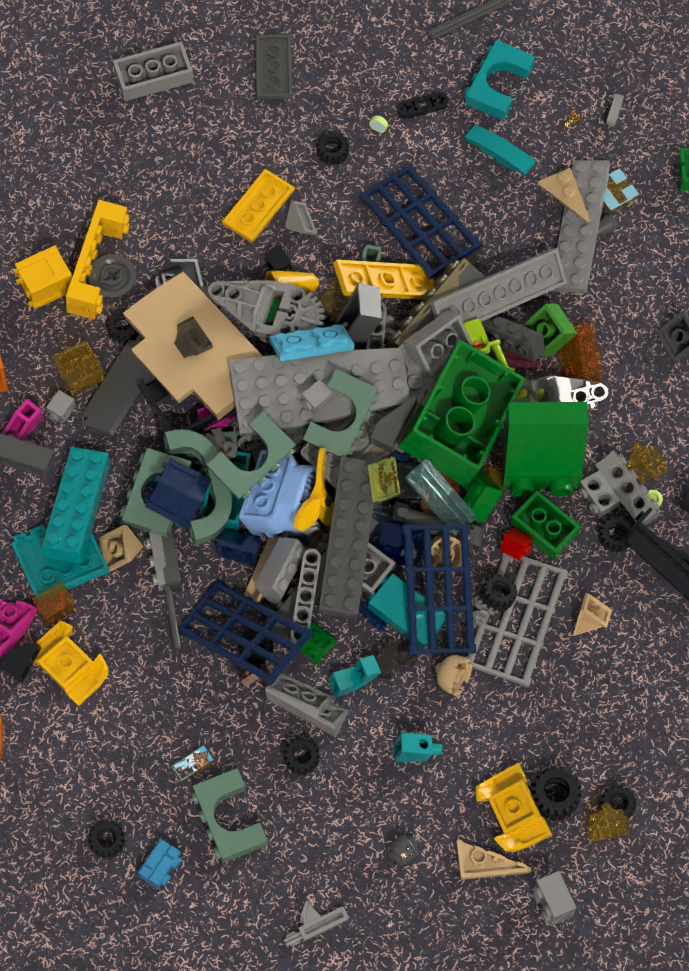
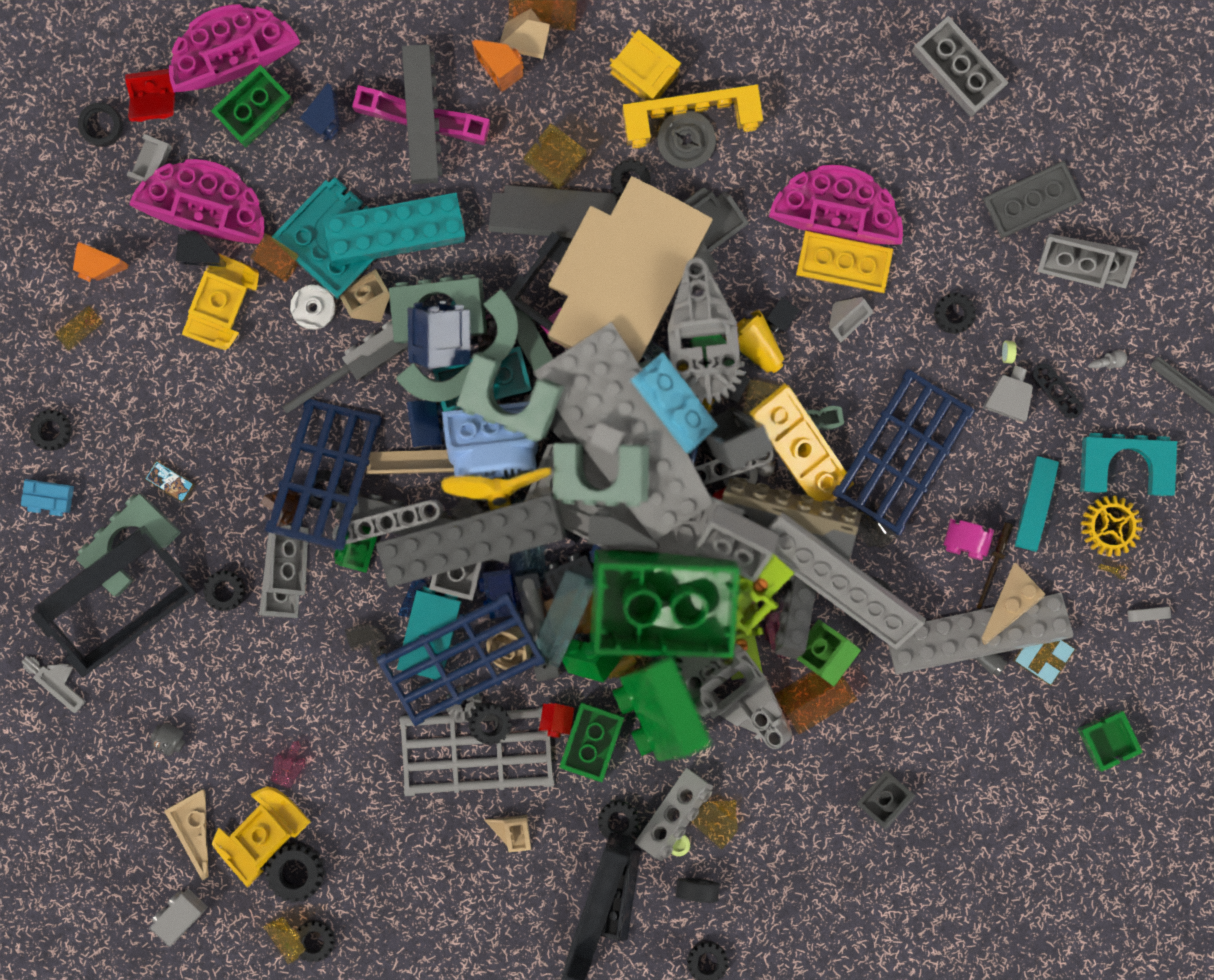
camera: 70 degrees right, 20 degrees up
(33, 784) = (78, 328): none -> clear yellow slope
(60, 407) = (502, 158): light grey brick -> none
(106, 585) = (313, 295): none -> white plate
(191, 338) = (625, 268): clear smoke slope -> none
(215, 189) = (839, 204): none -> dark pink brick
(229, 449) = (519, 360): light grey piece -> none
(243, 842) = (92, 578): none -> black piece
(280, 569) = (410, 480): light grey slope -> none
(336, 47) = (1087, 261): none -> light grey slope
(354, 677) = (332, 608): teal brick -> none
(383, 480) = (547, 551): clear yellow tile -> none
(412, 135) = (1011, 396): none -> light grey torso
(415, 748) = (277, 698): teal torso -> none
(417, 59) = (1115, 359): none -> light grey bar
(453, 670) = (379, 711): tan cylinder -> none
(467, 765) = (286, 772): none -> clear pink rock
(506, 201) = (968, 538): none -> dark pink brick
(527, 192) = (998, 554): none -> dark brown sword
(531, 114) = (1107, 517): none -> yellow gear
(603, 492) = (661, 788): light grey brick -> none

